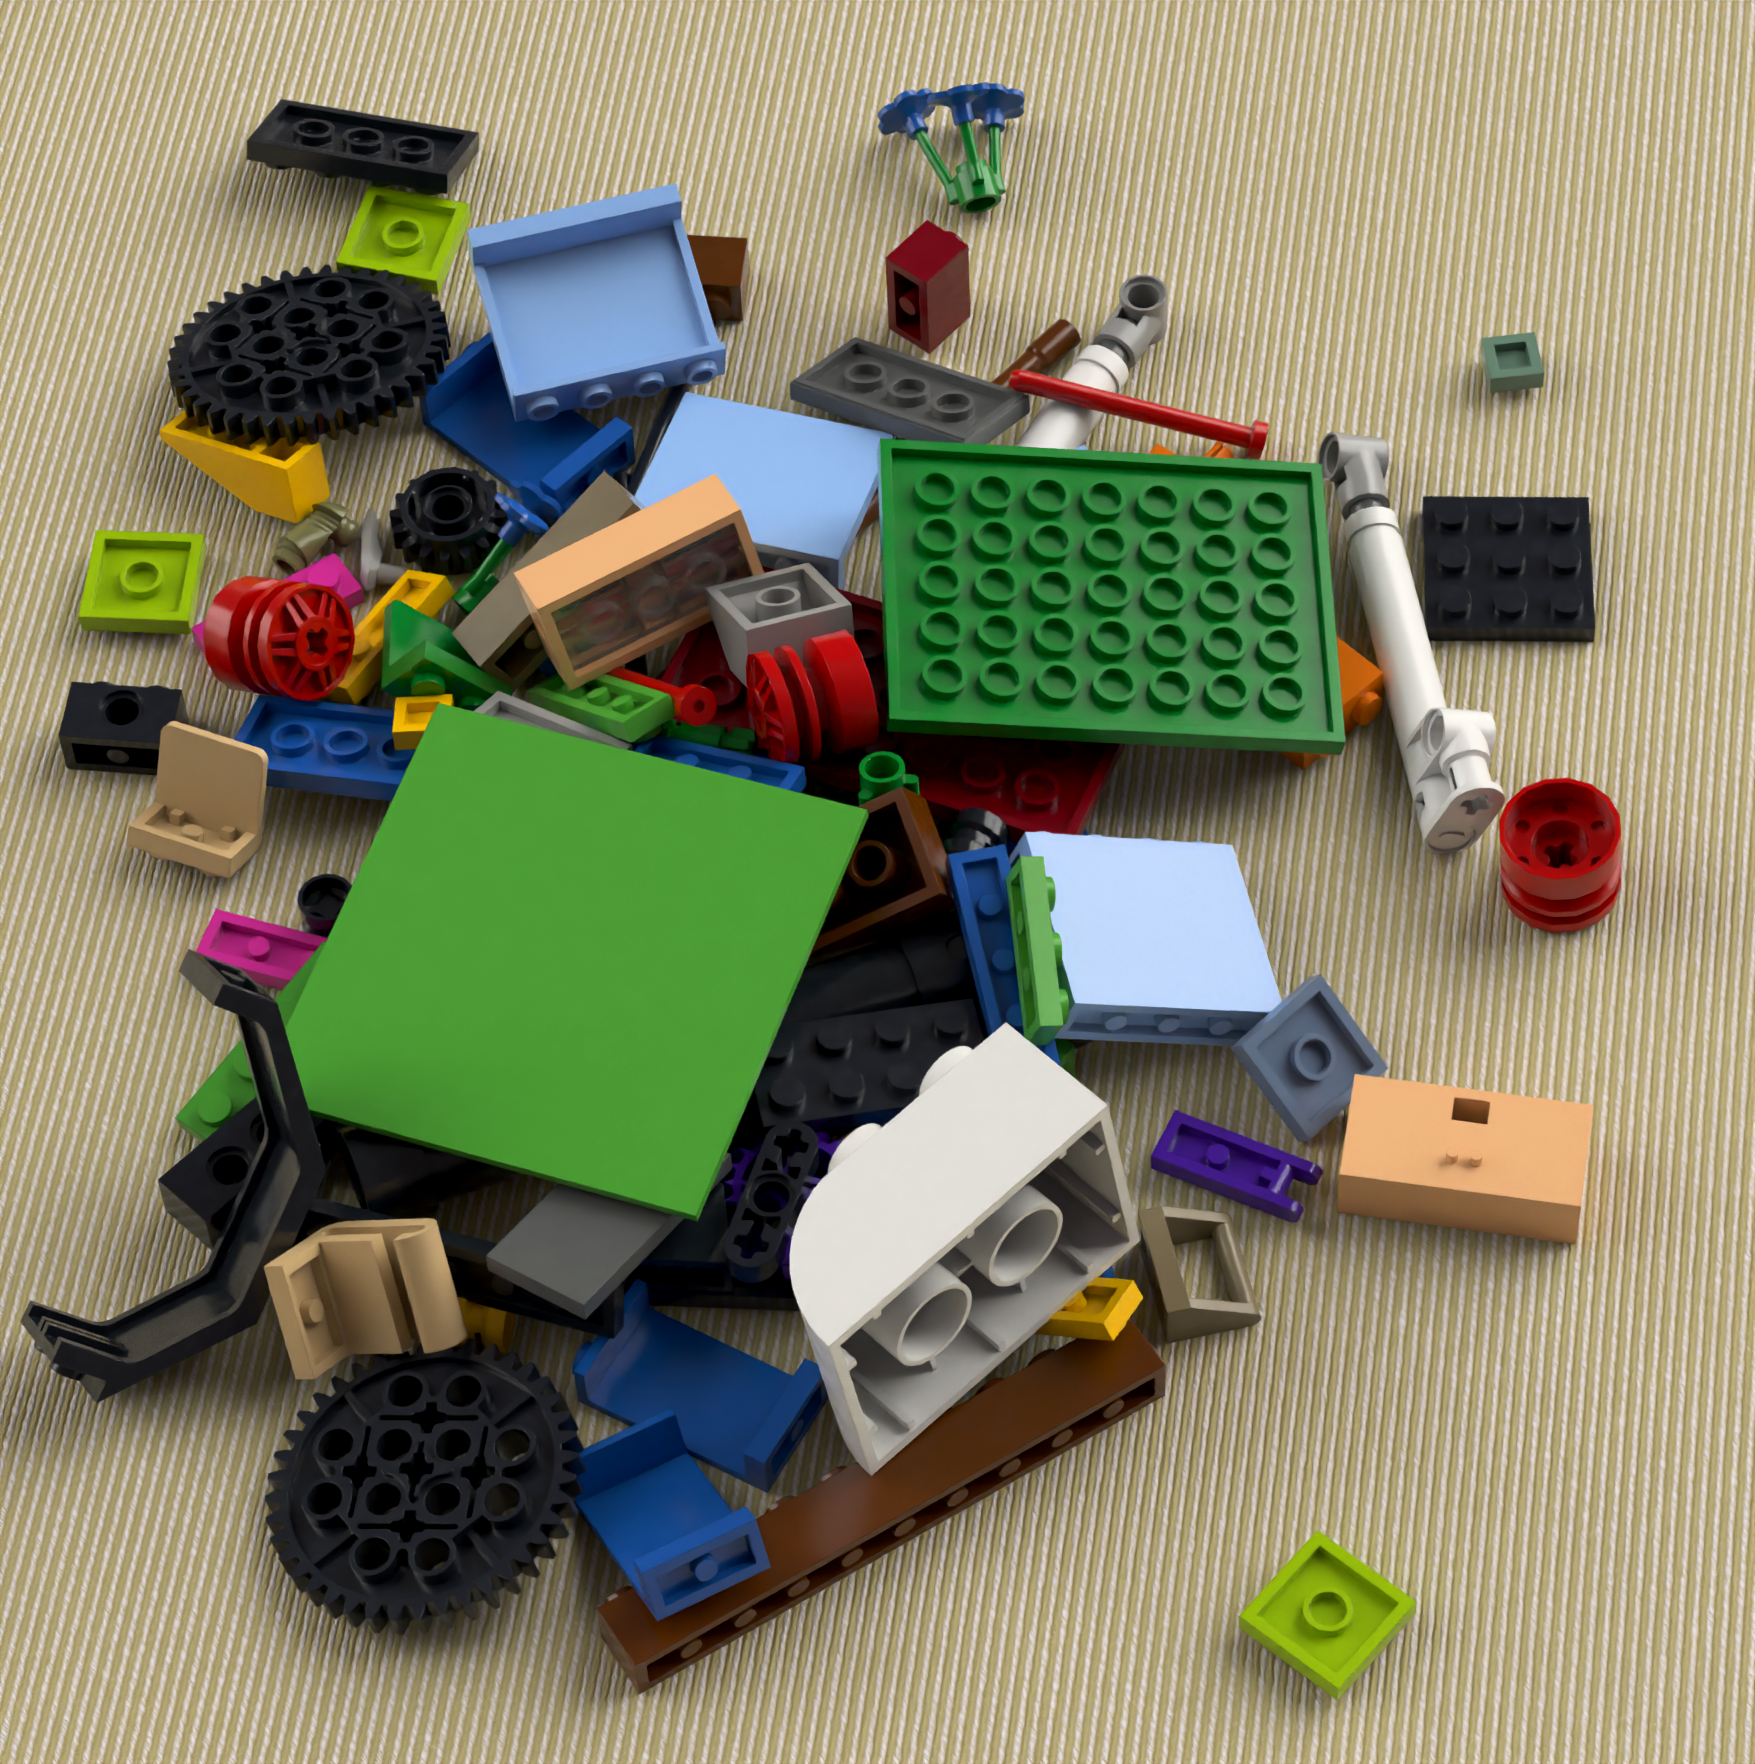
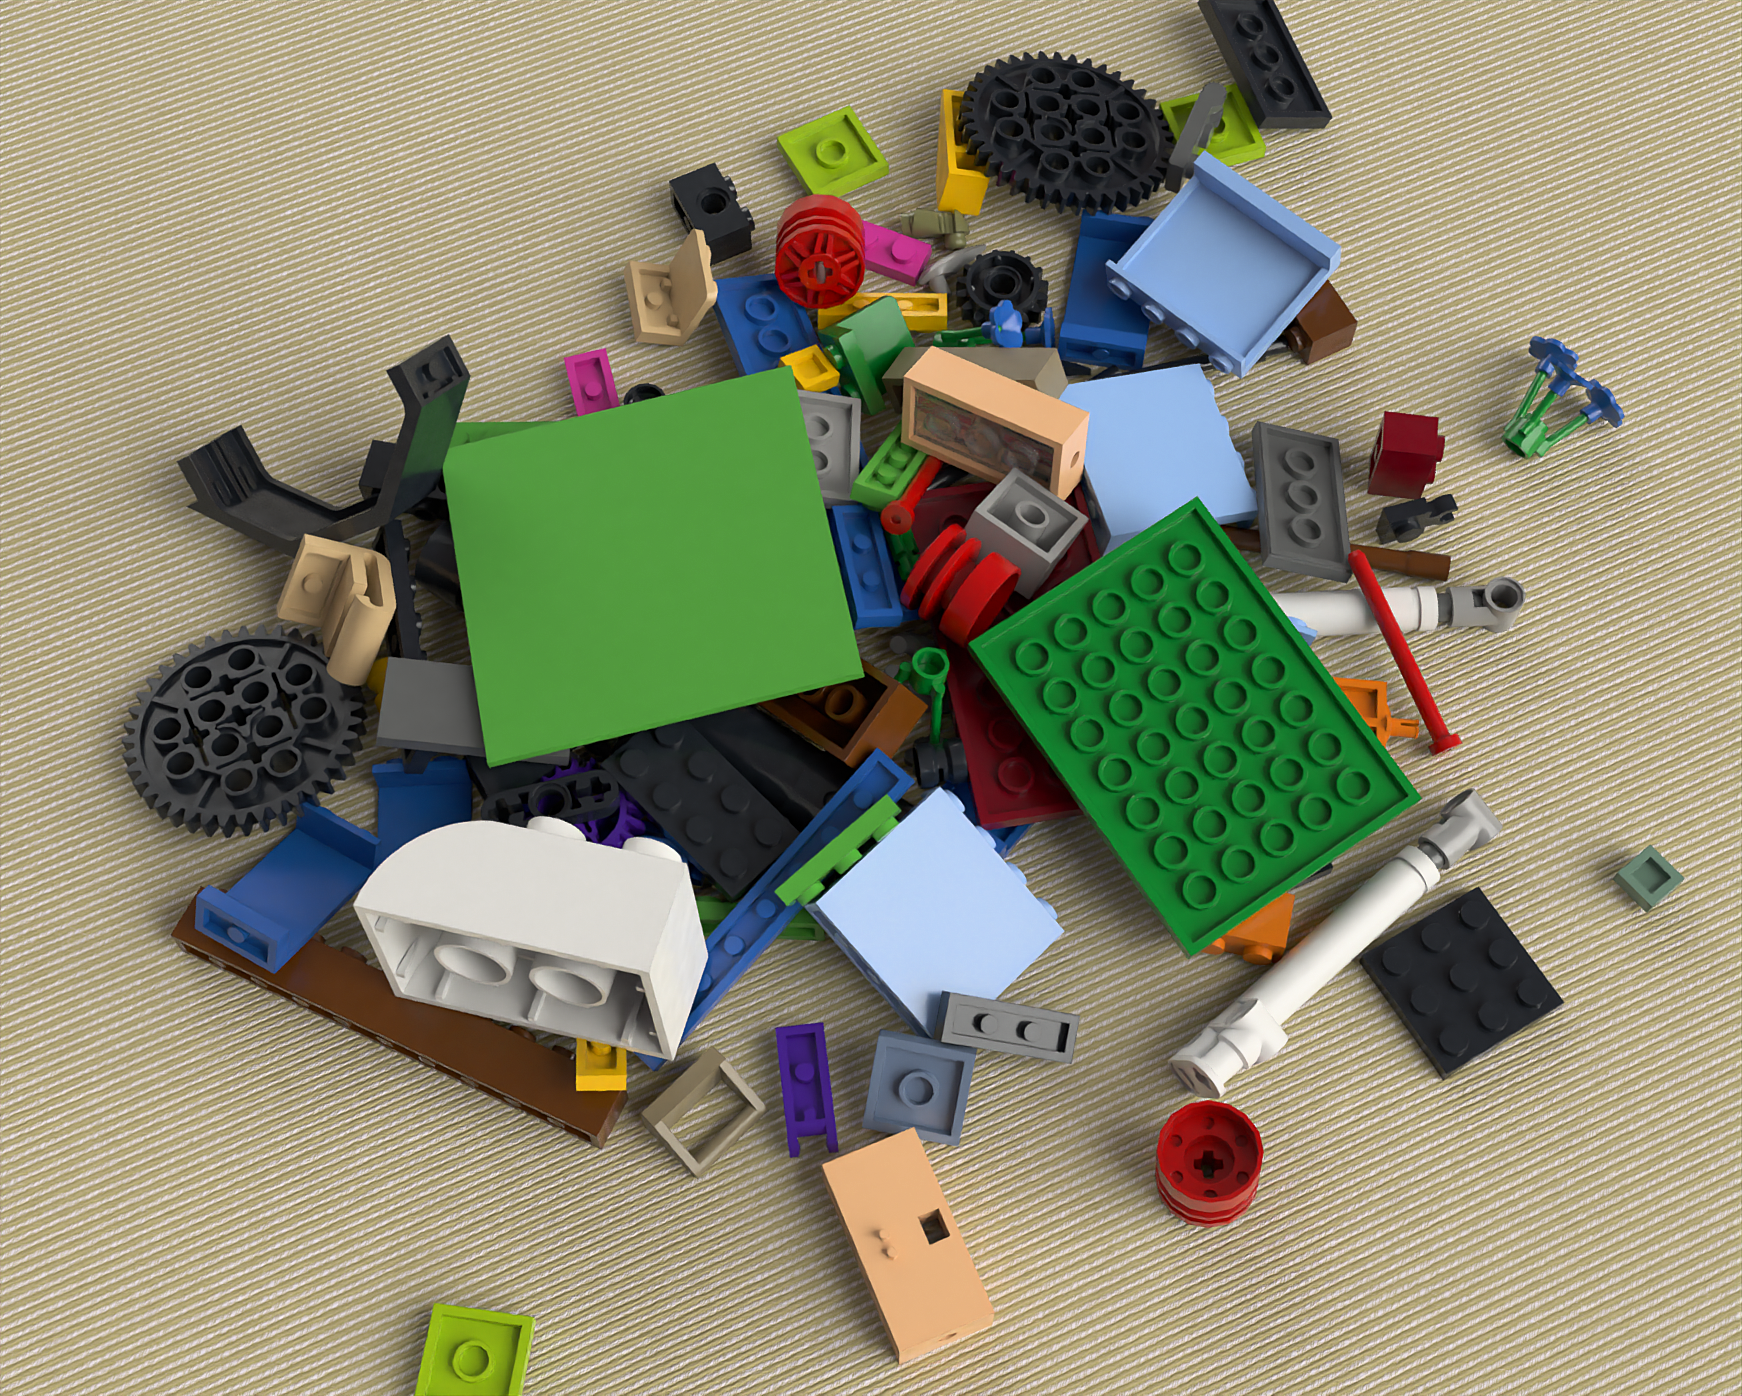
camera: 55 degrees right, 10 degrees up
(415, 248) = (1195, 135): none -> dark grey hinge
(994, 330) = (1408, 519): none -> black plate
(1300, 946) = (1006, 1027): none -> plate

